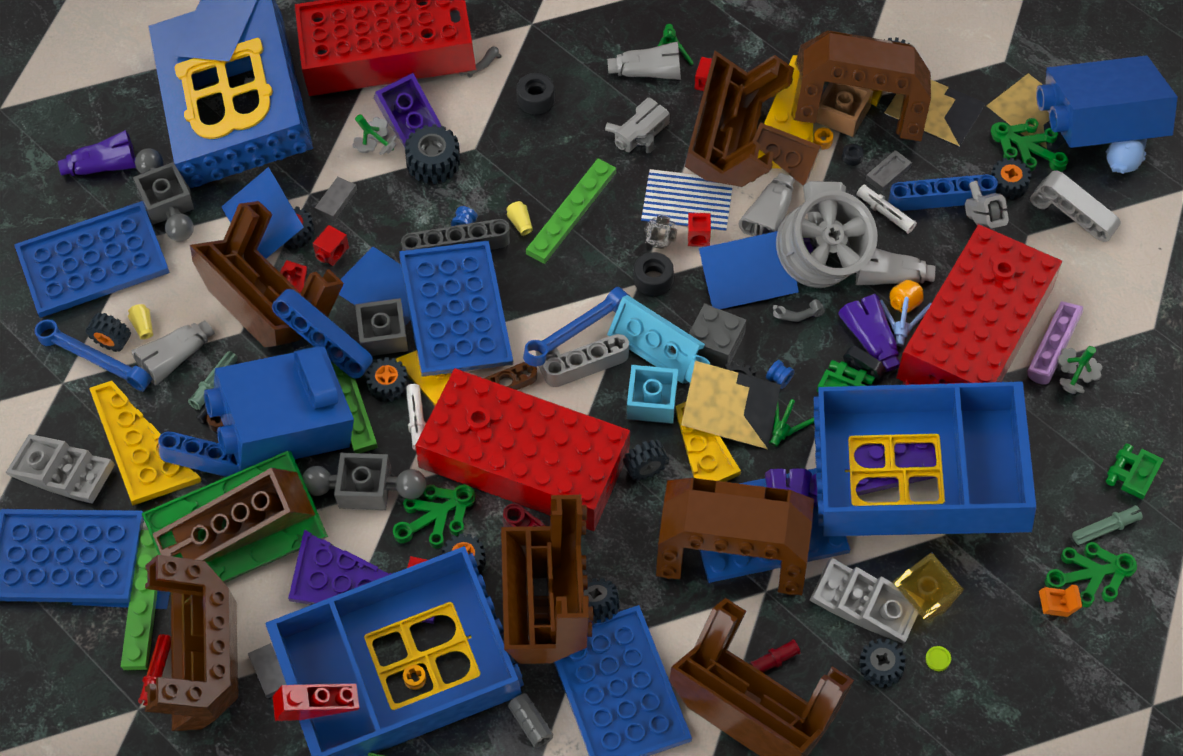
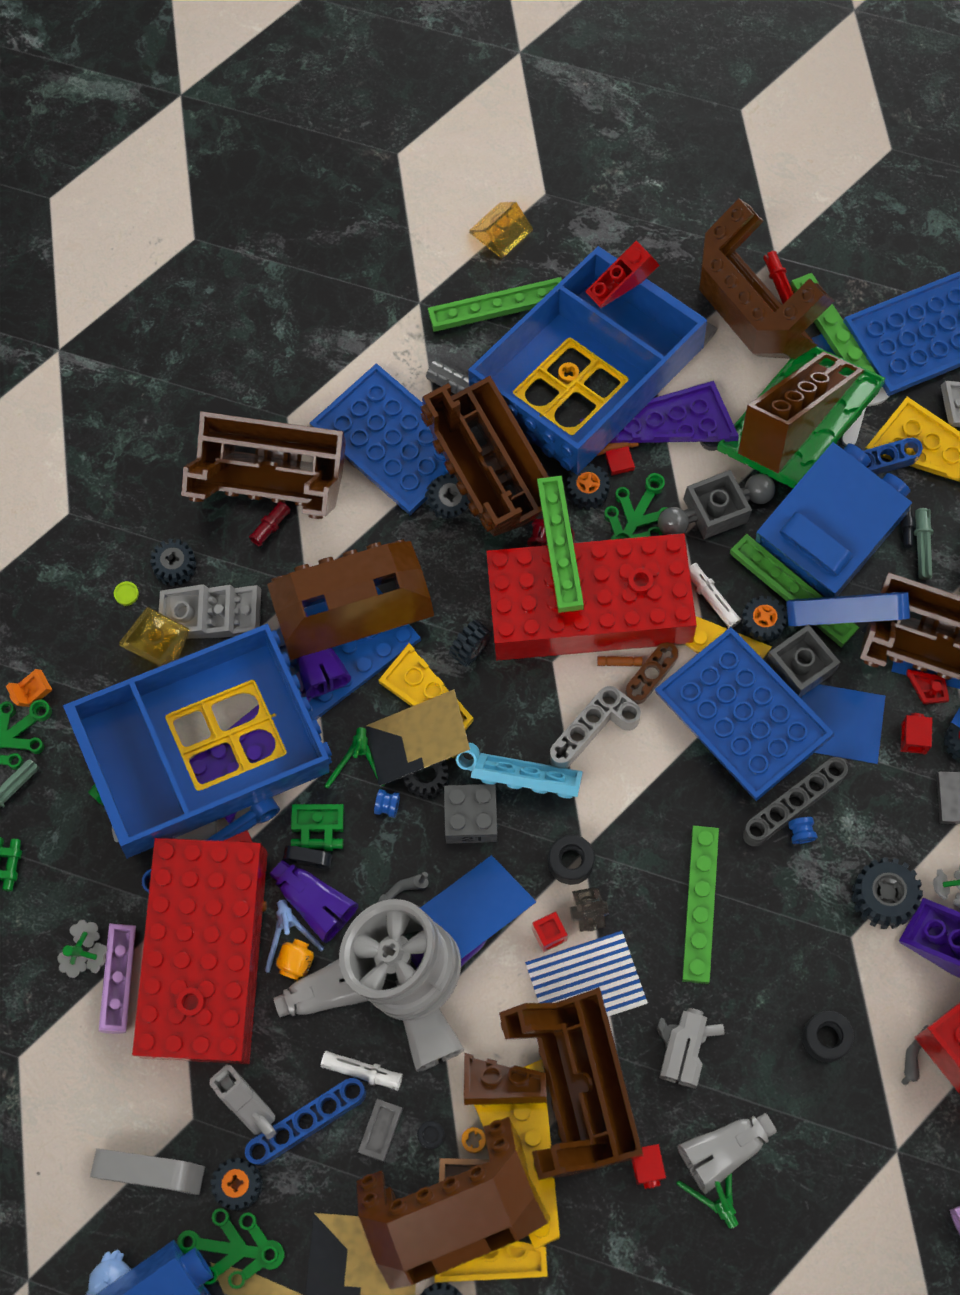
camera: 155 degrees right, 10 degrees up
(519, 217) = (747, 862): light yellow cone -> none
(529, 475) = (560, 544): none -> bright green plate
(545, 346) = (611, 753): blue piece -> none
(652, 394) = (500, 715): medium azure brick -> none
(769, 208) = (487, 995): light grey piece -> none

